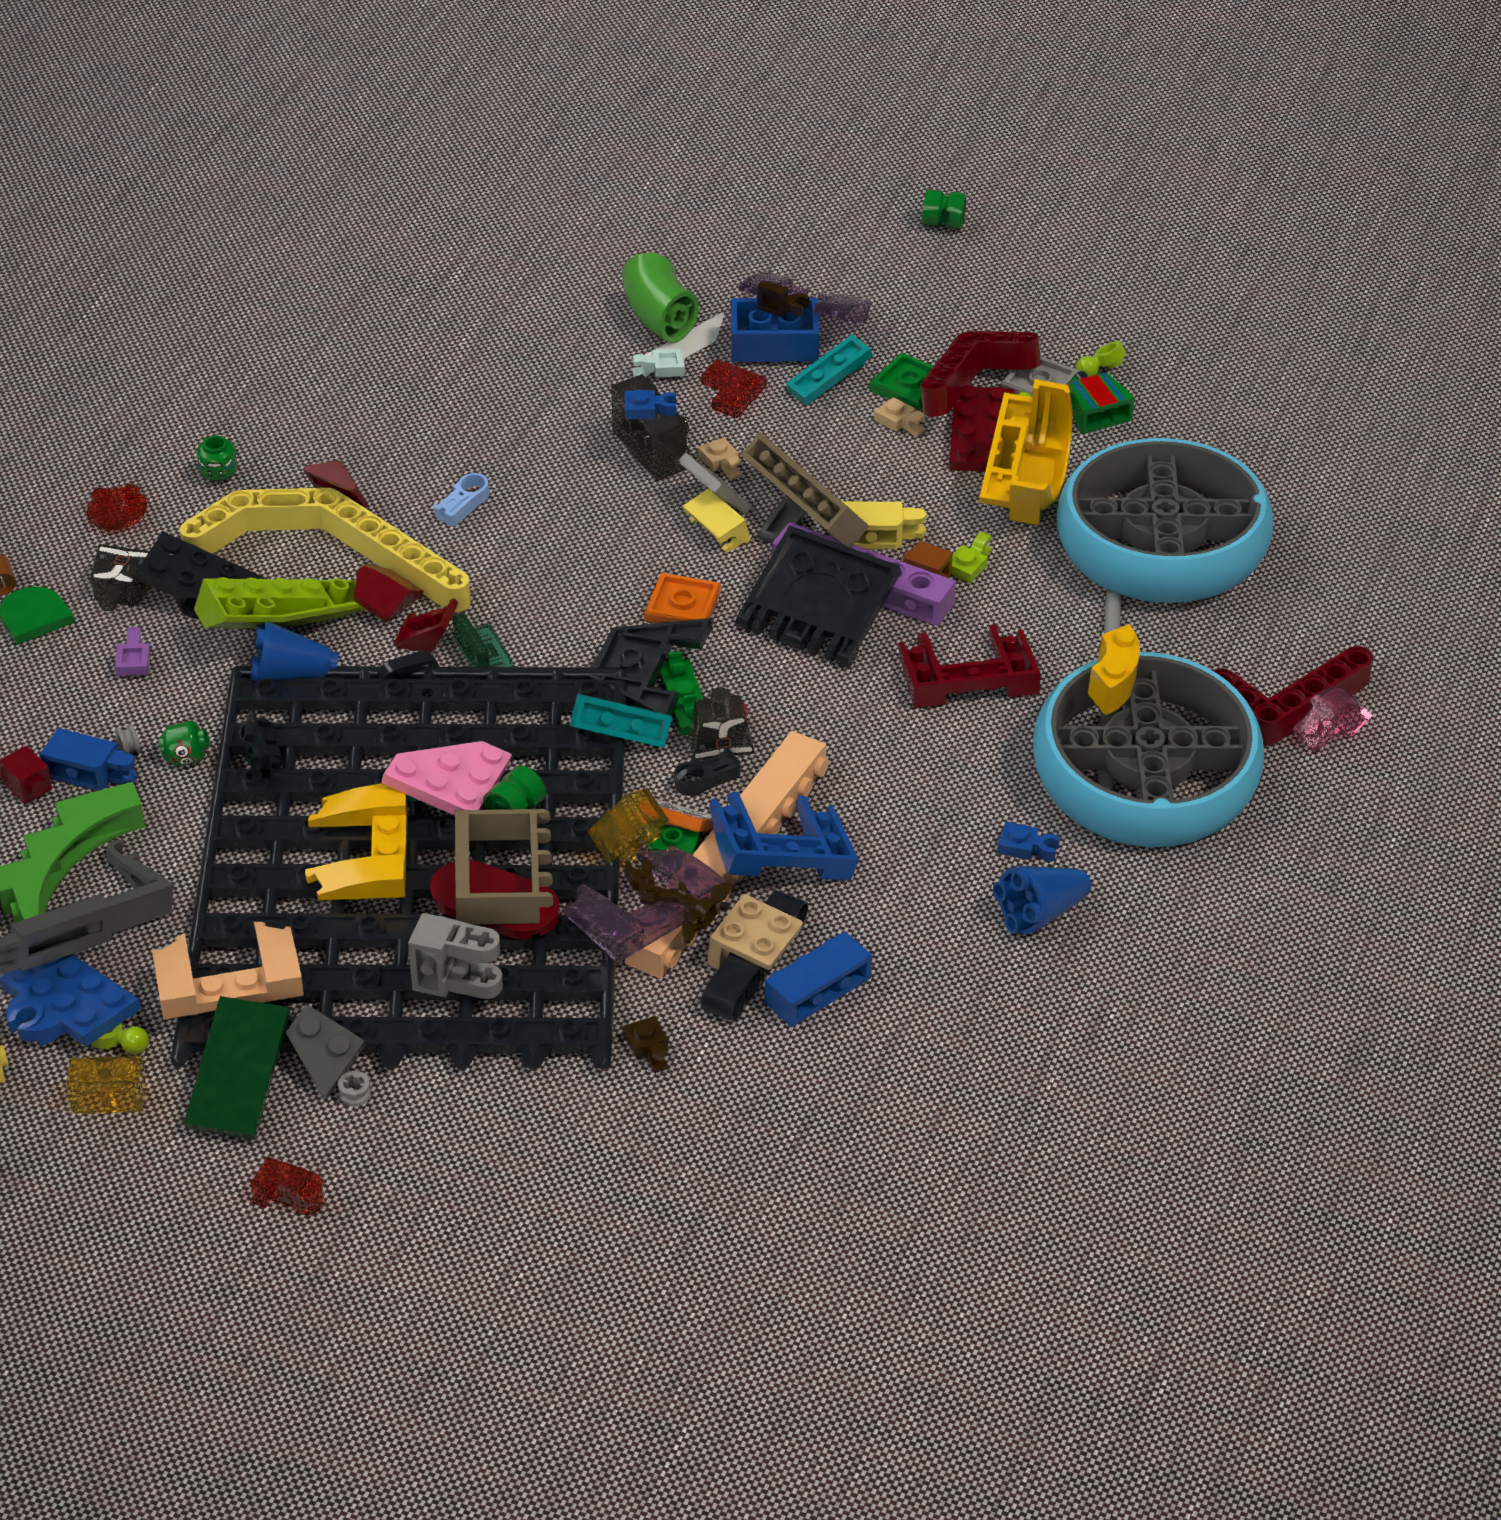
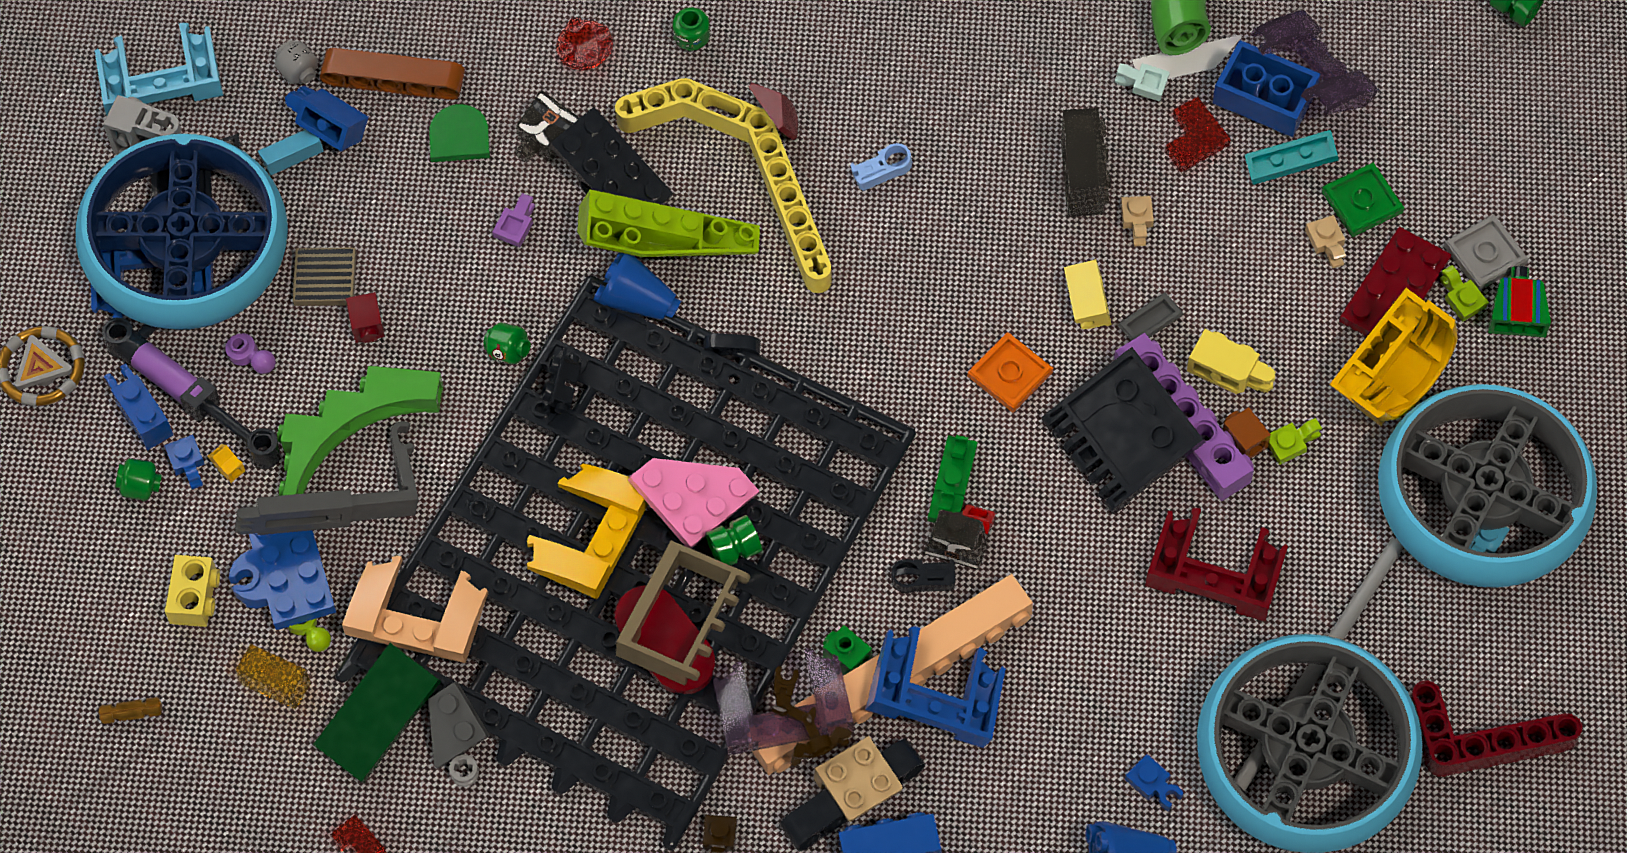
camera: 30 degrees right, 20 degrees up
(87, 761) = (420, 324): blue hinge -> none
(128, 739) = (464, 317): light grey bush -> none
(384, 591) = (757, 247): dark red slope -> none
(425, 630) = (772, 302): dark red slope -> none
(444, 960) = (579, 692): light grey brick -> none
(479, 644) = (810, 345): clear green panel -> none
(620, 720) = (872, 494): teal hinge -> none
(628, 826) = (812, 619): clear yellow brick -> none
(642, 654) = (935, 421): black wing -> none
(644, 404) = (1077, 148): blue plate -> none
(686, 817) = (866, 618): orange tile -> none
(715, 483) = (1105, 255): light grey tile -> none
(777, 301) = (1274, 67): dark brown plate -> none
(805, 490) = (1174, 306): dark tan brick -> none
(969, 355) = (1430, 196): dark red beam -> none
(1107, 355) = (1565, 253): lime plate -> none
(1116, 669) = (1310, 666): yellow brick -> none
(1332, 711) = (1503, 777): clear pink brick -> none

